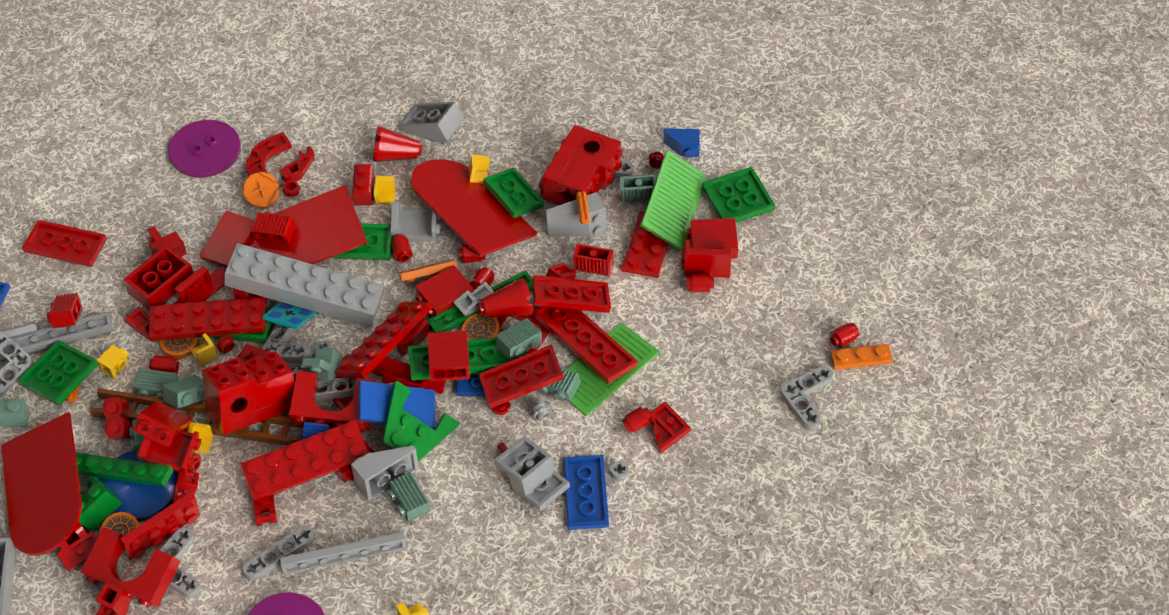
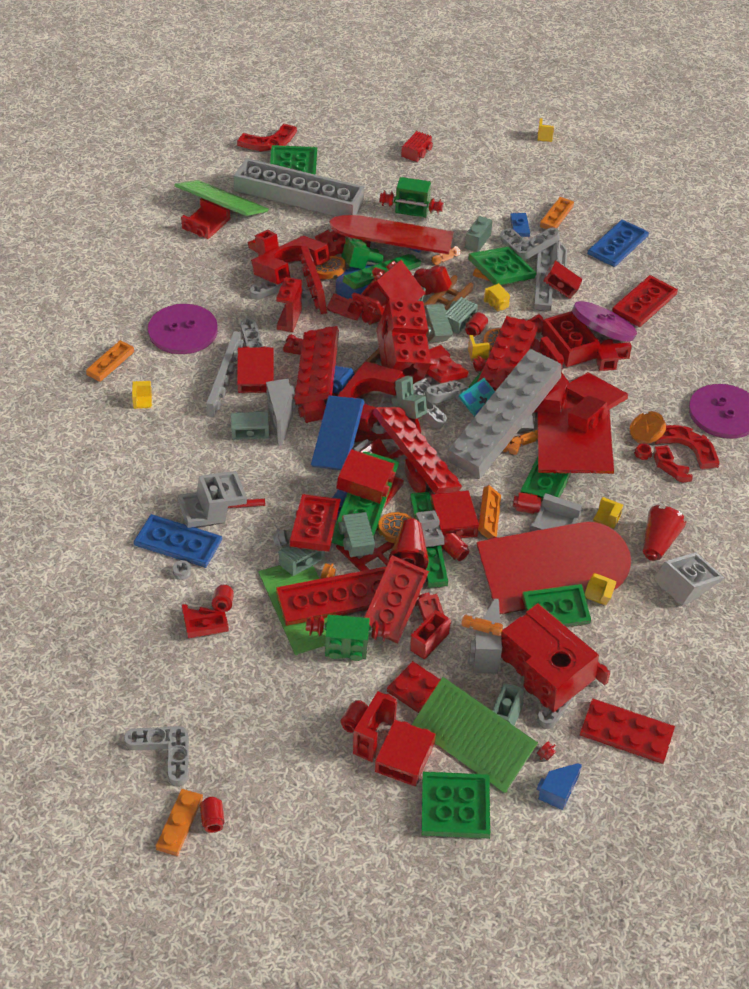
camera: 110 degrees right, 5 degrees down
(125, 254) = (604, 321): none -> magenta plate
(218, 527) = (291, 295): none -> red panel
(329, 521) = (255, 369): none -> red brick
(363, 184) = (623, 494): red brick -> none
(405, 430) = (307, 436): green wing -> none
(563, 359) = (328, 571): none -> orange plate
(608, 116) = (627, 731): none -> red plate
(631, 306) = (347, 635): none -> green brick

